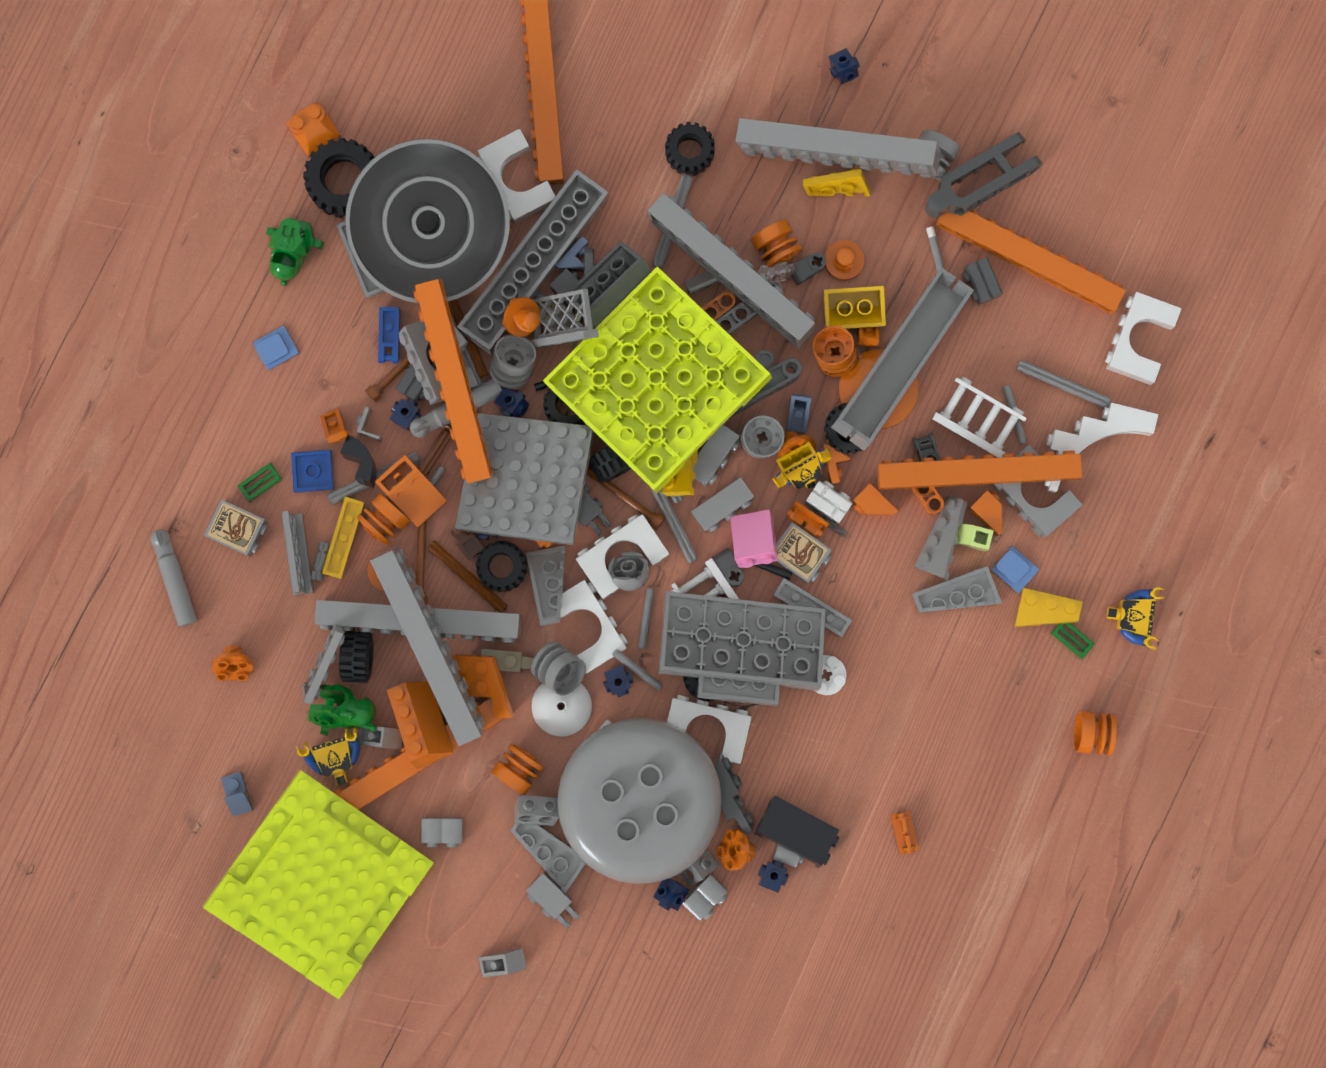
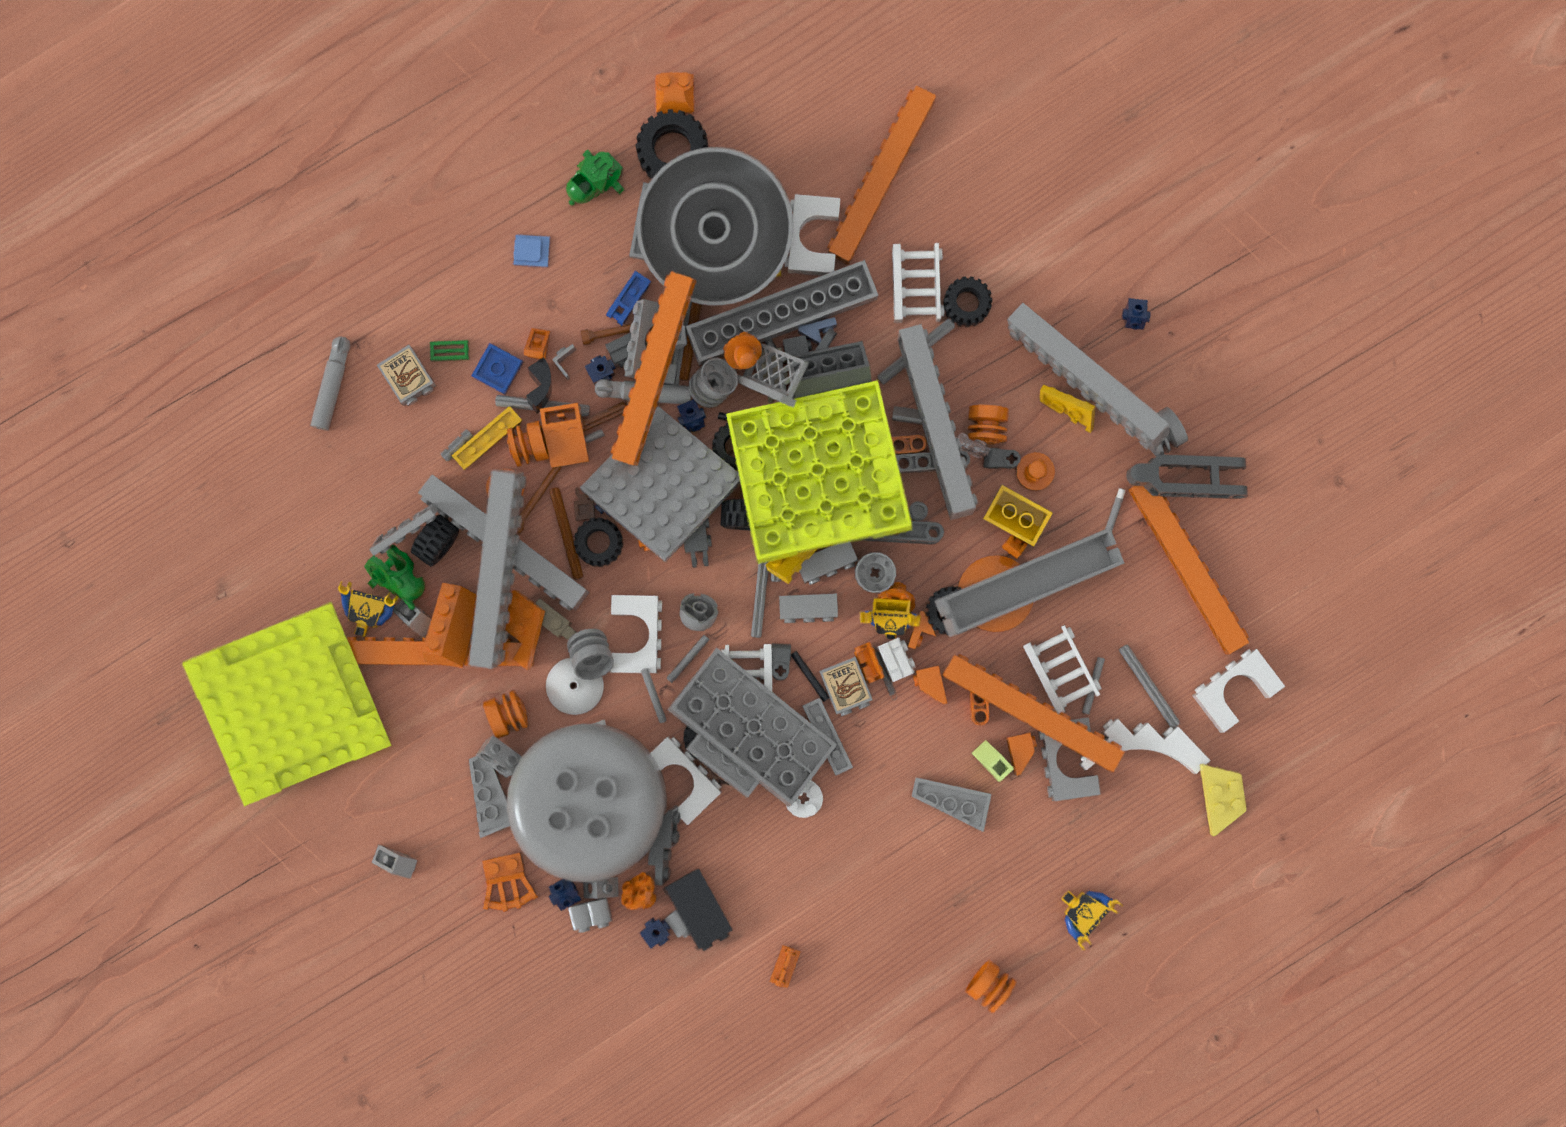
camera: 30 degrees right, 0 degrees up
(232, 665) = (333, 483): orange plate -> none
(236, 794) = (270, 589): sand blue slope -> none
(297, 553) = (442, 427): light grey fence -> none
(441, 830) = (414, 724): light grey brick -> none
(547, 579) = (627, 577): light grey wing -> none
(551, 898) = (466, 835): light grey hinge -> none
(604, 907) = (502, 870): none -> orange plate
(614, 674) = (640, 695): dark blue brick -> none
(625, 178) = (900, 274): none -> white fence
(637, 532) = (676, 584): white arch -> none
(653, 518) = (746, 583): dark orange piece -> none
(754, 538) = (815, 650): bright pink brick -> none
(798, 413) = (917, 572): sand blue slope -> none
(835, 341) = (981, 531): orange wheel -> none
(926, 450) = (1003, 668): dark grey piece -> none
(940, 544) = (960, 754): light grey wing -> none
(982, 280) = (1136, 560): dark grey brick -> none
(1015, 569) = (1012, 811): medium blue piece -> none
(1044, 608) = (1016, 859): yellow wing -> none
(1085, 649) = (1018, 881): green tile -> none
(1189, 439) = (1222, 796): none -> light yellow wing

